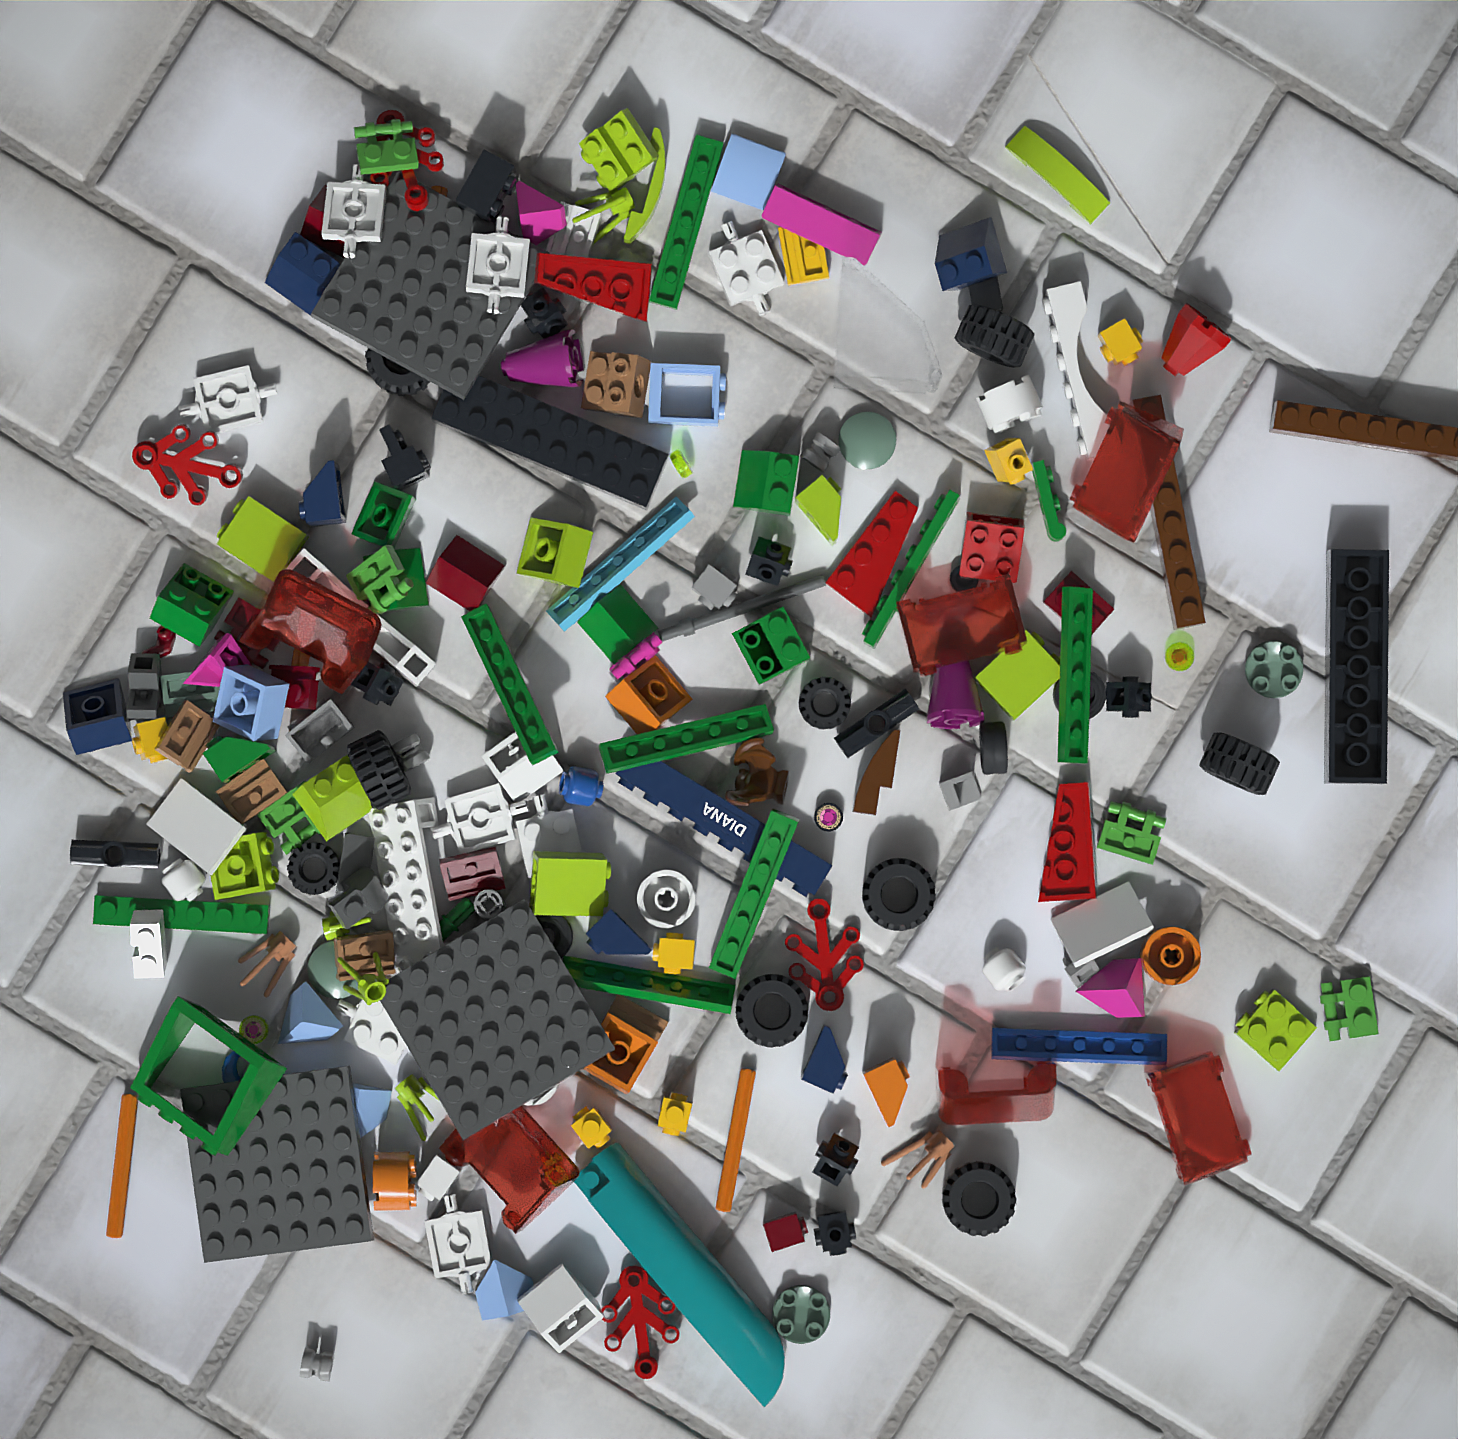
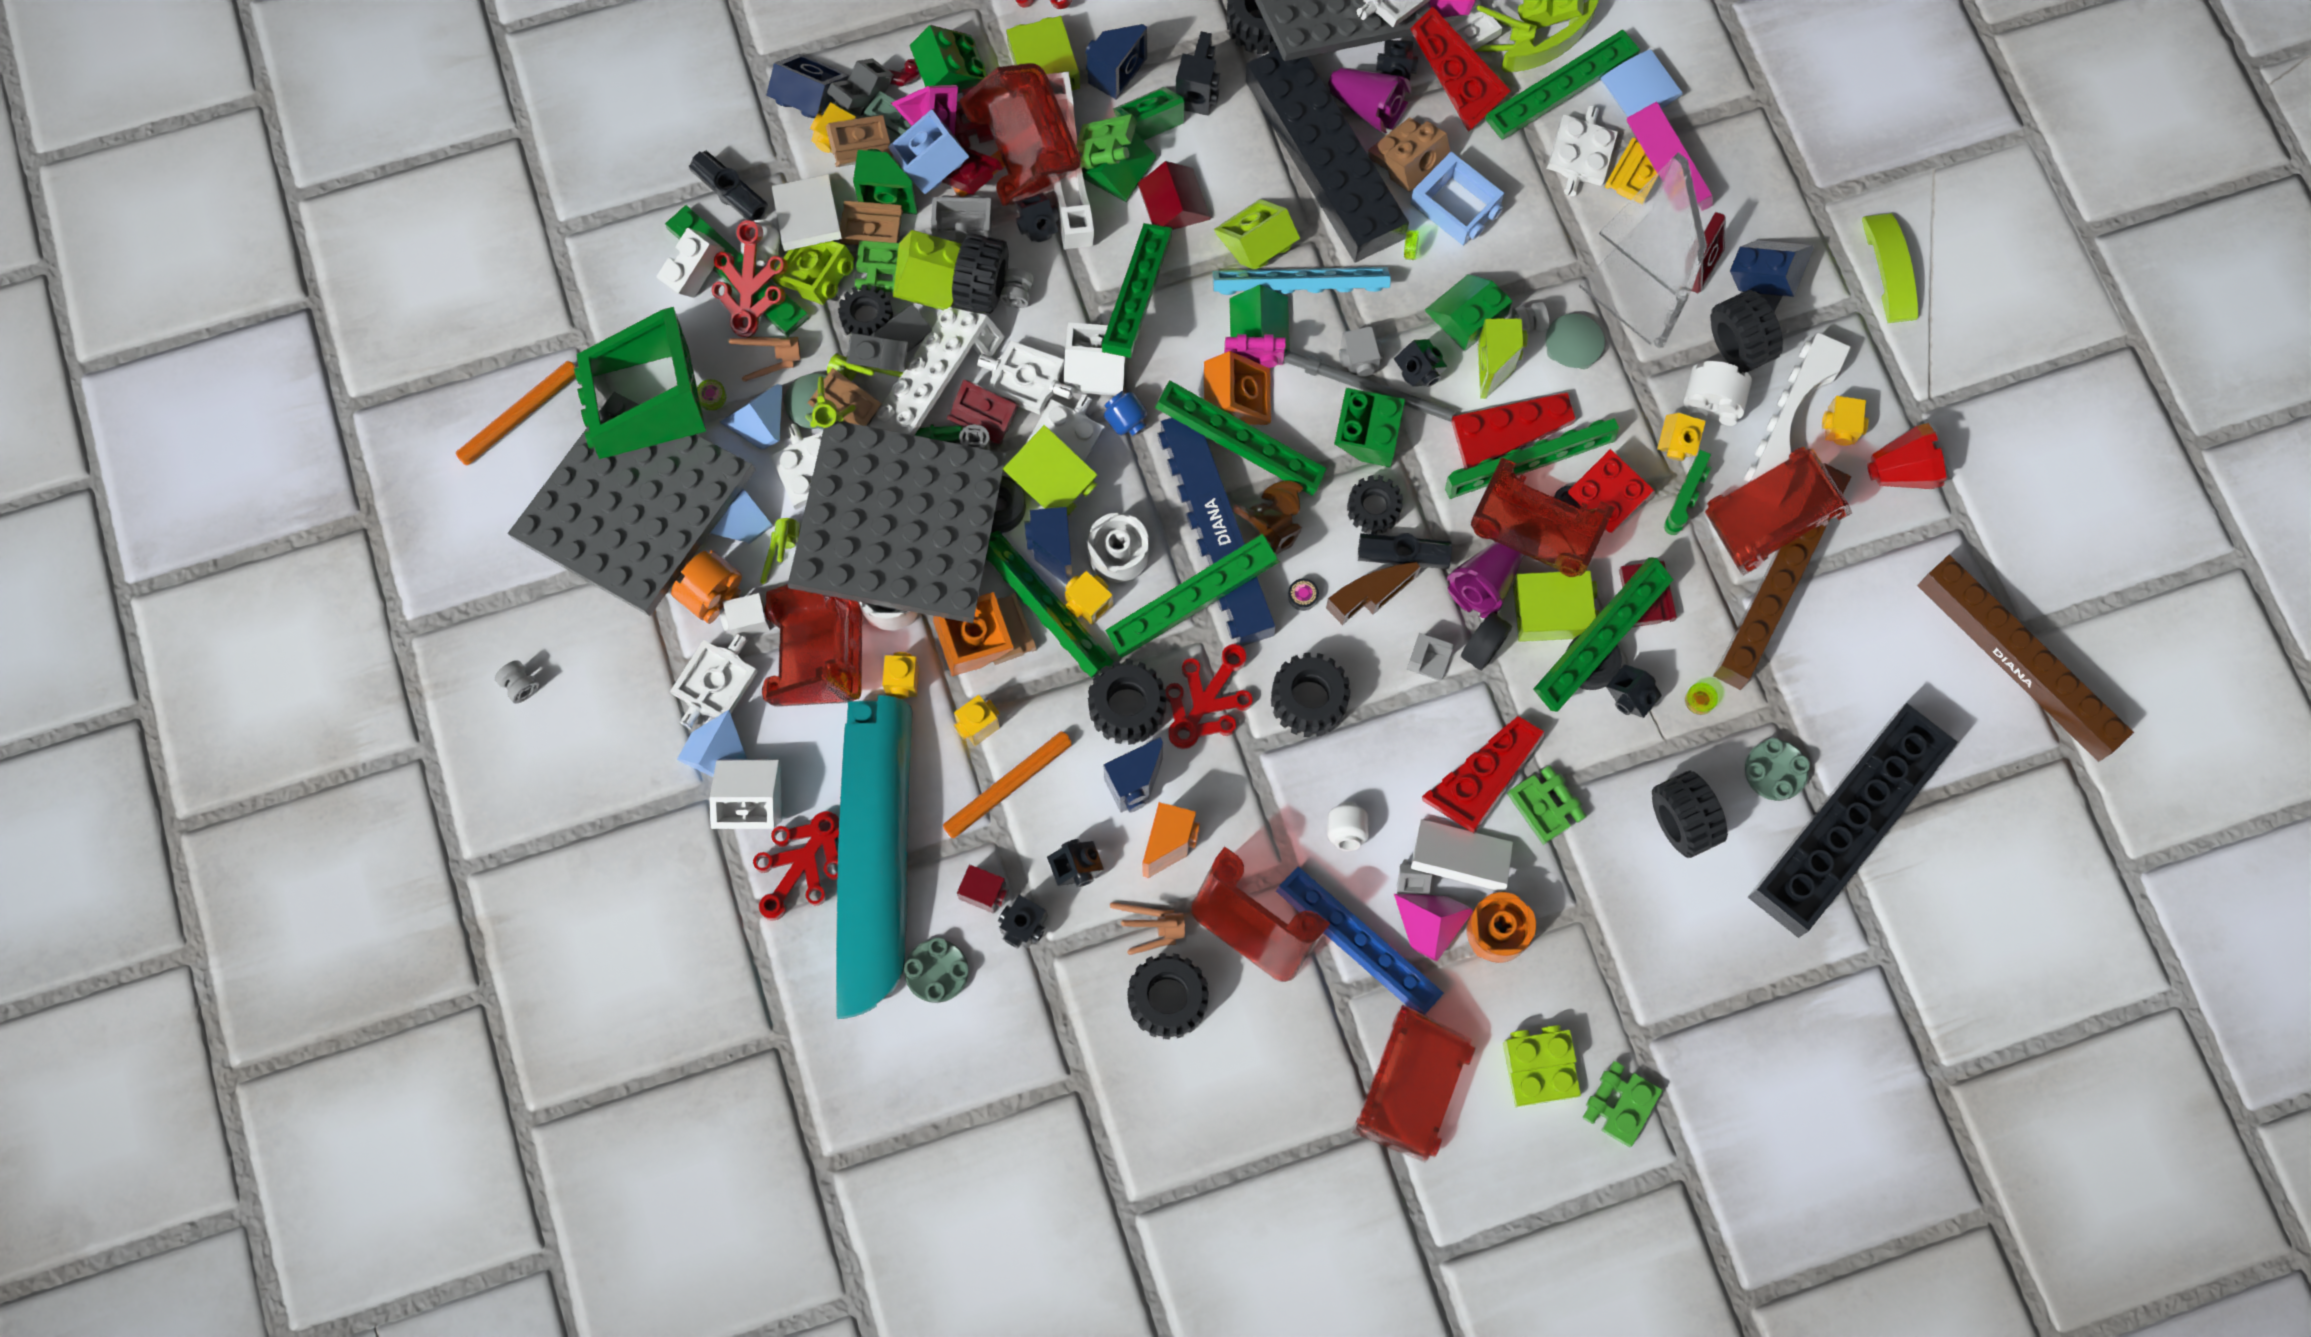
camera: 35 degrees right, 15 degrees down
(206, 923) = (748, 283): none -> red plant
(913, 287) = (1715, 247): none -> dark red plate

